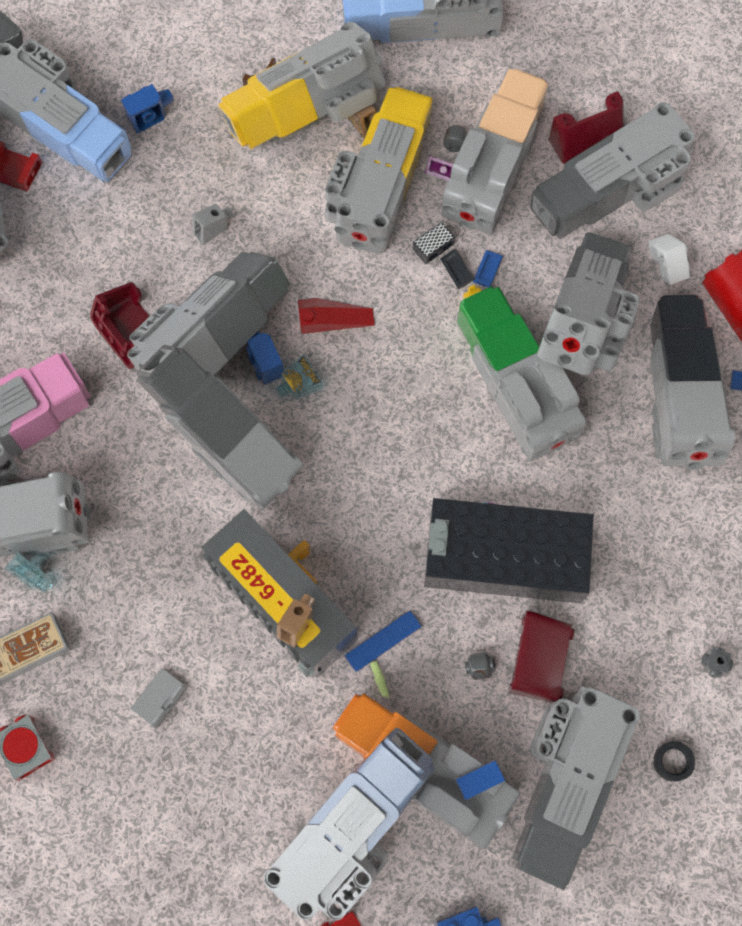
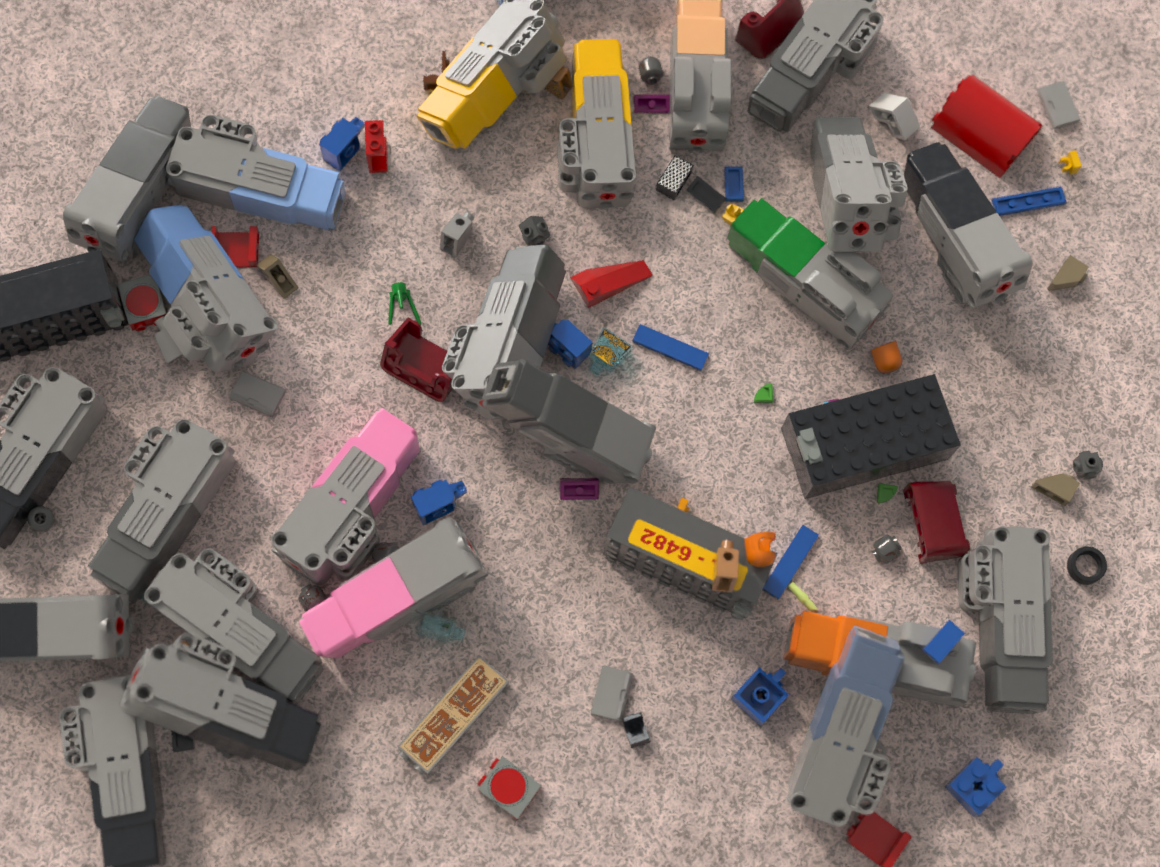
camera: 30 degrees left, 0 degrees up
(37, 205) = (277, 276): none -> dark tan slope
(79, 455) = (437, 500): none -> blue hinge
(136, 258) = (399, 293): none -> green plant
(163, 742) = (635, 730): none -> black bracket
(170, 123) = (376, 146): none -> red panel
(217, 495) = (579, 488): none -> magenta slope
(282, 245) = (534, 230): none -> dark grey brick
(306, 762) = (772, 693): none -> blue hinge
(335, 618) = (759, 551): none -> orange helmet
(360, 397) = (670, 347): none -> blue tile
(429, 473) = (764, 394): none -> bright green tile
(505, 611) = (885, 492): none -> bright green tile
(561, 482) = (887, 357): none -> orange helmet
(677, 672) = (1057, 487): none -> dark tan slope

